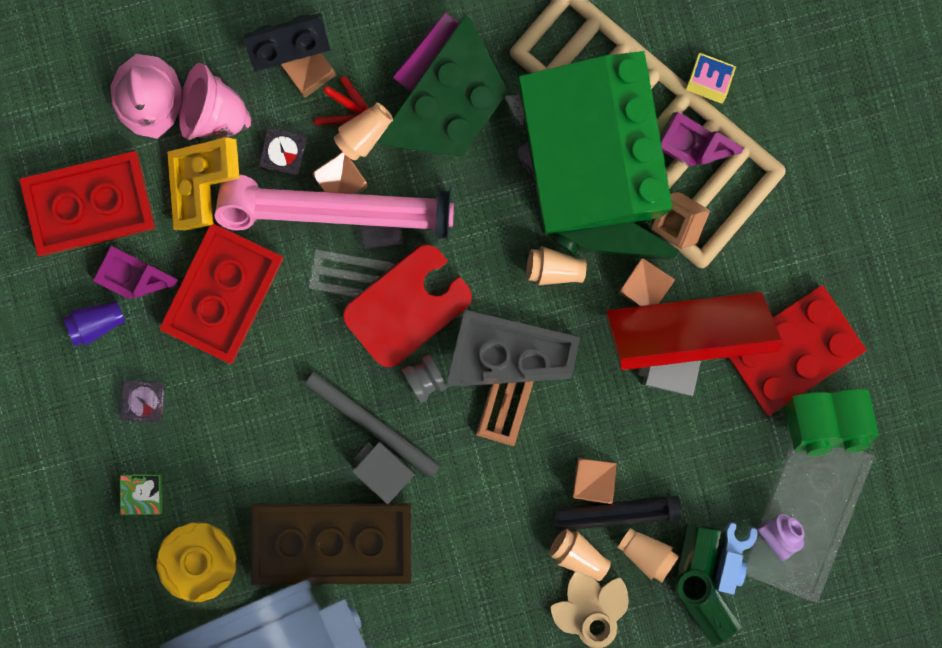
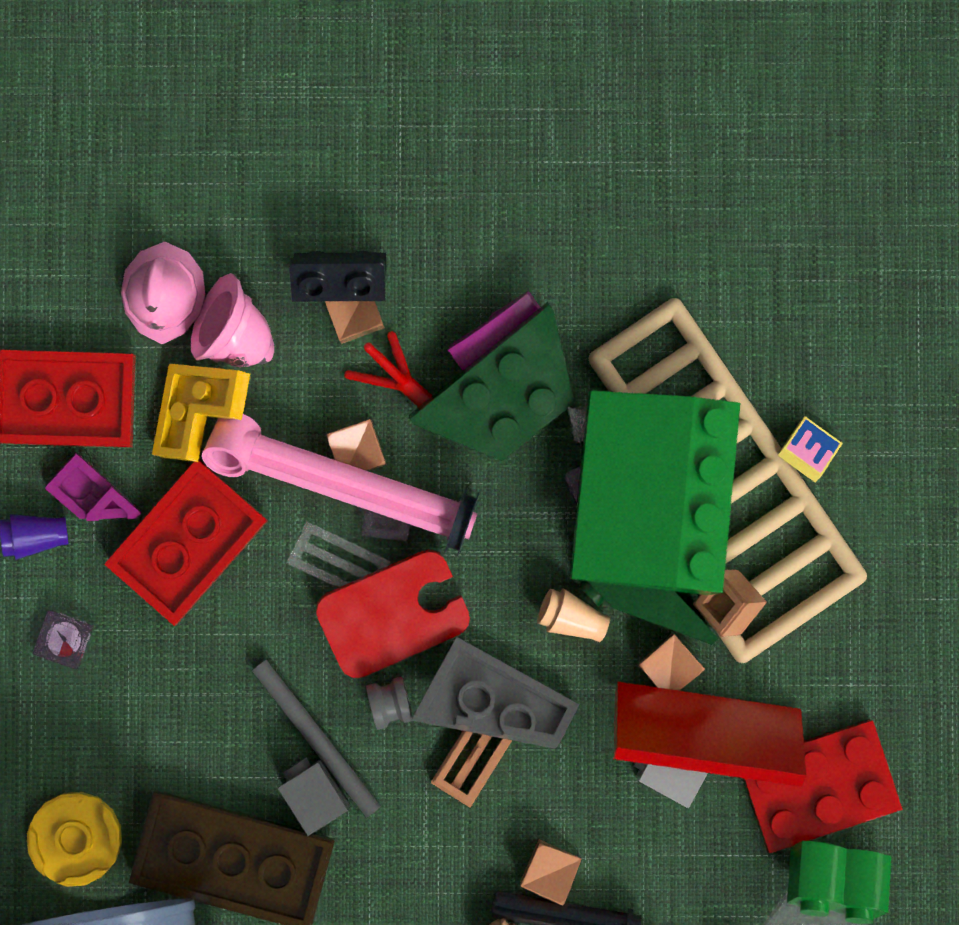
camera: 25 degrees right, 0 degrees up
(141, 494) = (32, 745): tile -> none
(283, 151) = (300, 399): tile -> none
(363, 131) = (396, 403): light nougat cone -> none
(693, 143) = (770, 519): magenta slope -> none

